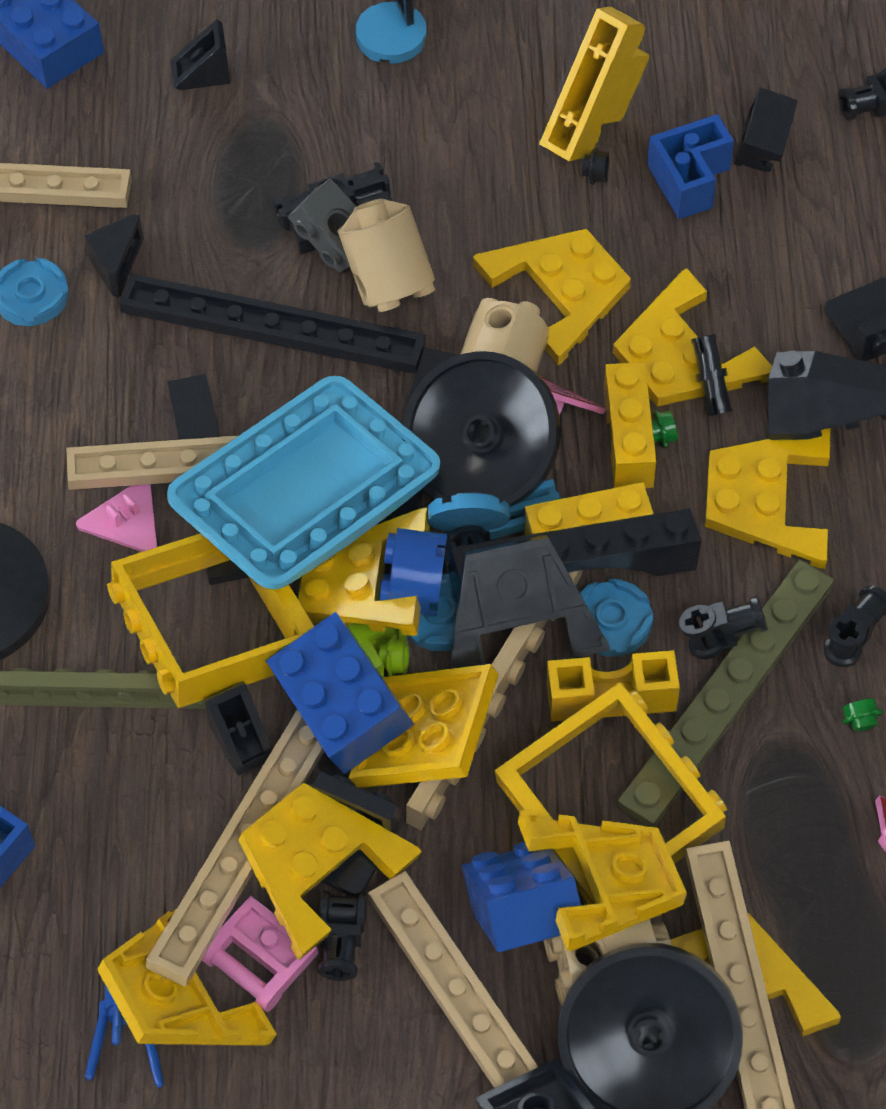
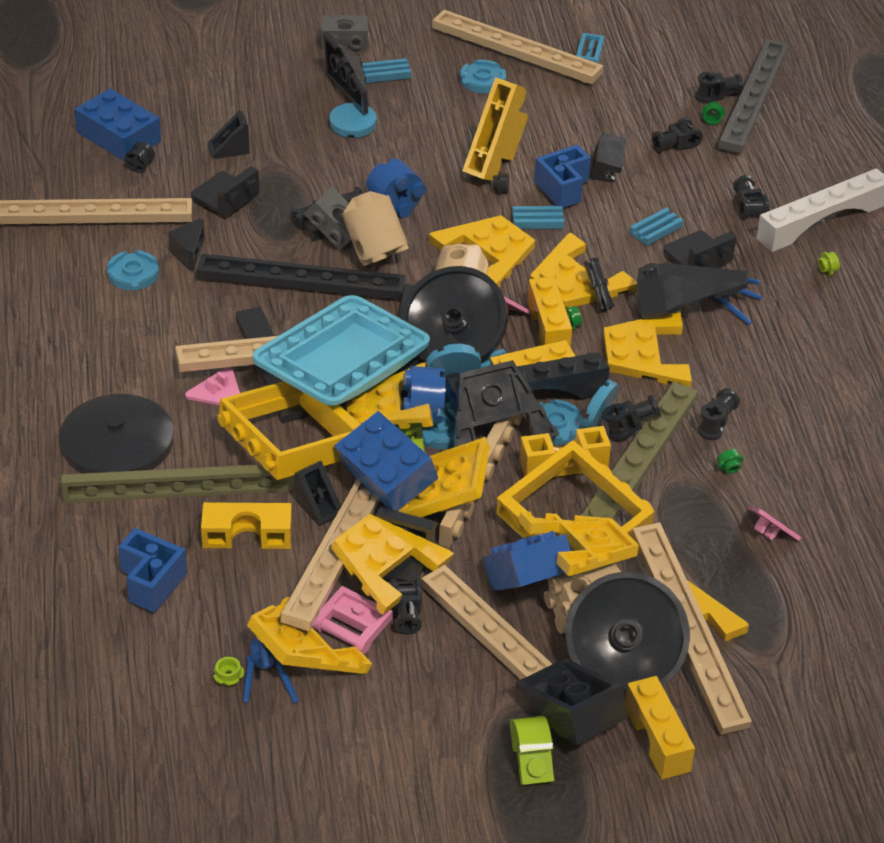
camera: 10 degrees left, 15 degrees down
(64, 86) = (139, 157): none -> black wheel
(69, 1017) = (225, 666): none -> lime plate
(96, 763) = (226, 520): none -> yellow arch
(184, 158) = (226, 192): none -> black bracket
(431, 174) = (399, 183): none -> blue brick
(642, 228) = (538, 217): none -> dark azure tile
(679, 600) = (602, 399): none -> dark azure tile
(816, 258) = (653, 225): none -> dark azure tile

